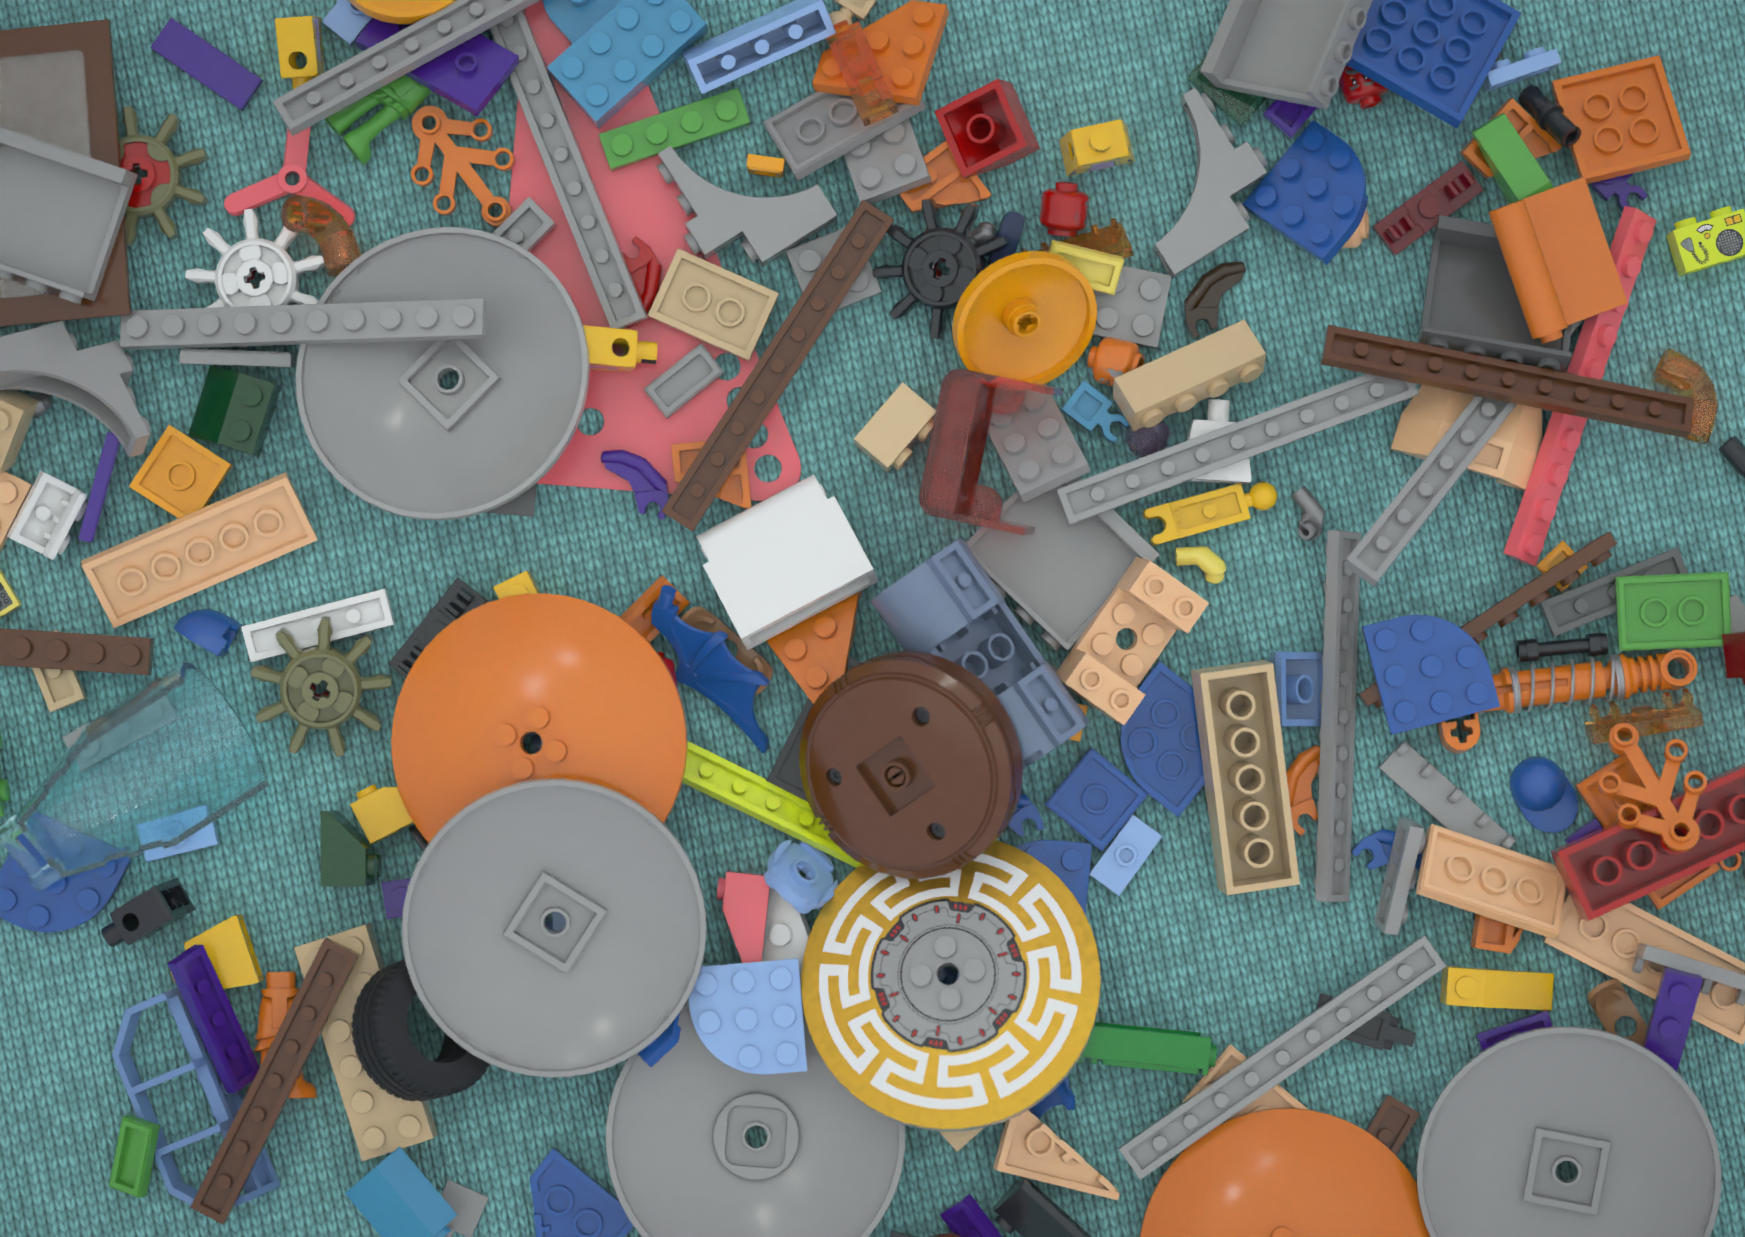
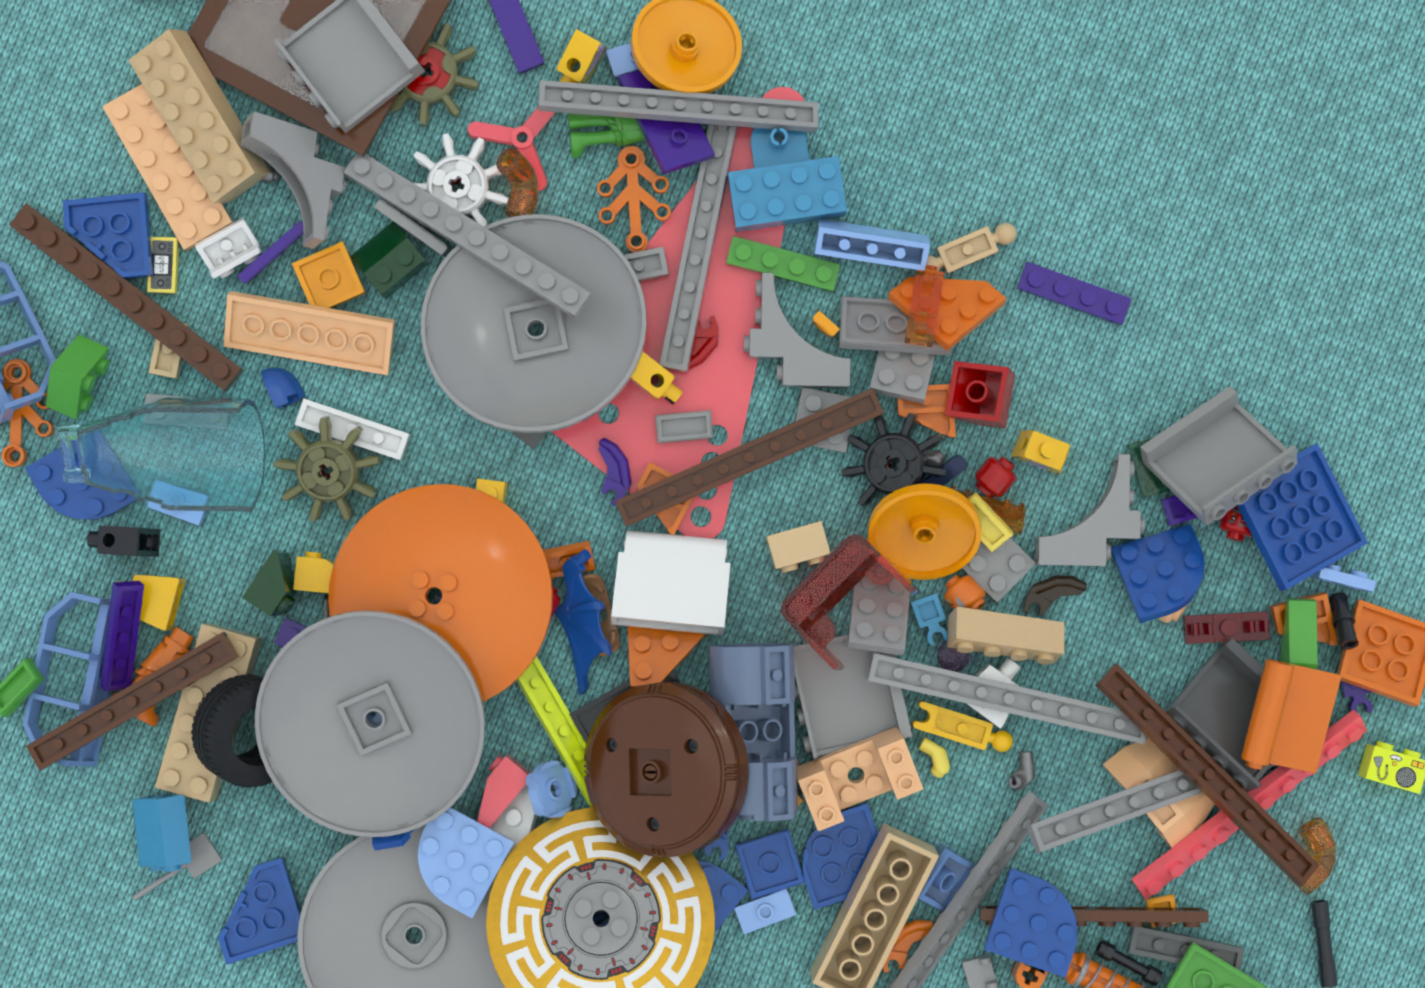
camera: 30 degrees right, 0 degrees up
(452, 605) = (443, 473): black plate -> none
(713, 305) = (734, 391): tan plate -> none

